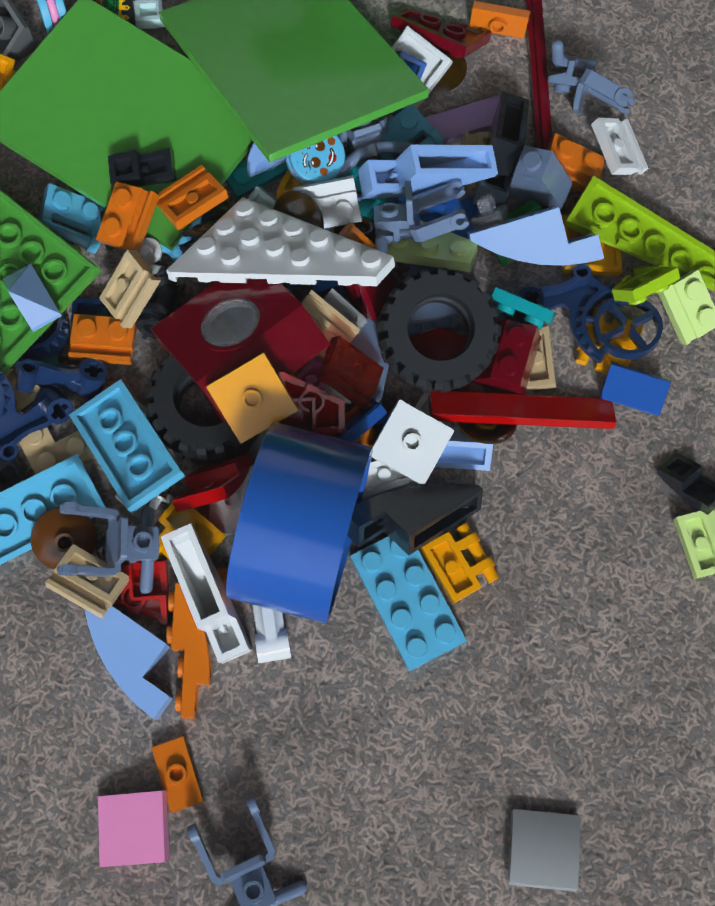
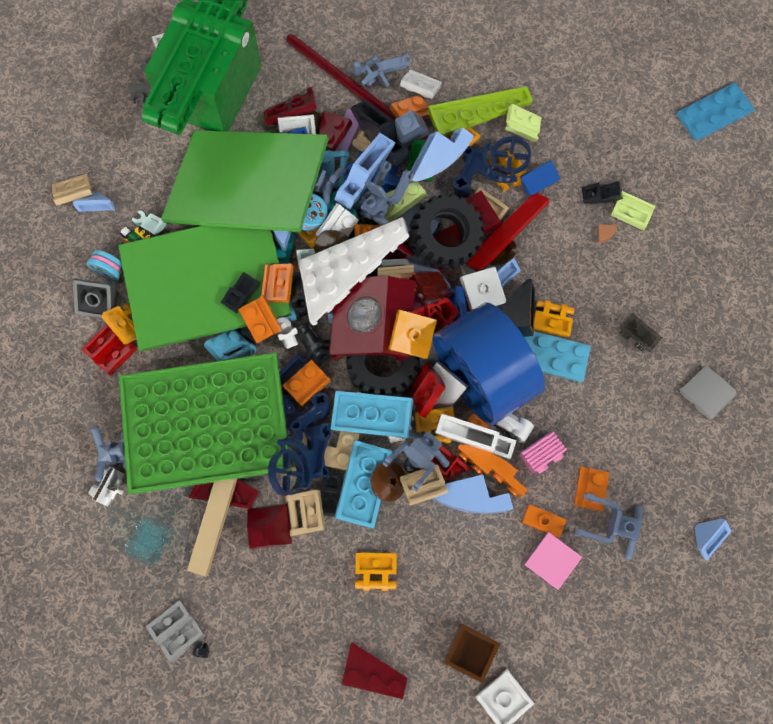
camera: 45 degrees left, 0 degrees up
(31, 297) = (263, 394): light blue slope -> none
(129, 289) = (298, 348): tan plate -> none
(264, 697) = (542, 452): none -> bright pink brick
(279, 798) = (591, 482): none -> orange plate
(456, 100) = (335, 128): none -> dark red wing
(488, 213) = (407, 163): clear tile -> none
(499, 19) = (309, 78): orange plate -> none
(509, 302) = (475, 184): teal plate -> none
(539, 688) = (639, 332): none -> clear smoke brick
(643, 533) = (605, 232): none -> nougat tile
(644, 283) = (498, 130): lime wing -> none

